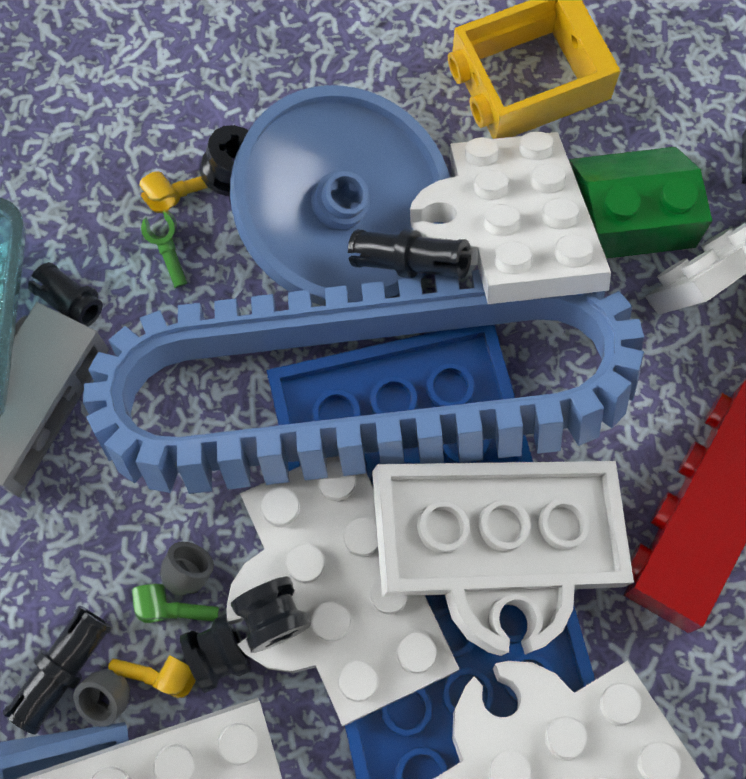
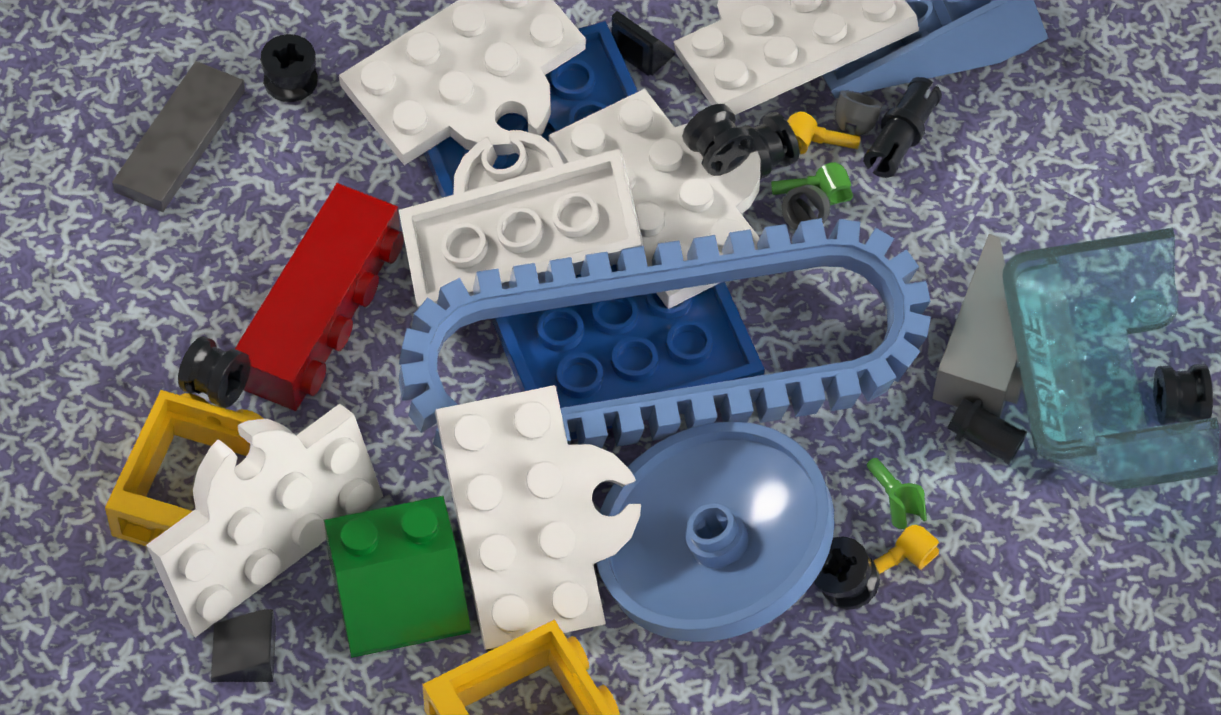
camera: 170 degrees right, 15 degrees down
(410, 253) = (636, 443): black pin -> none

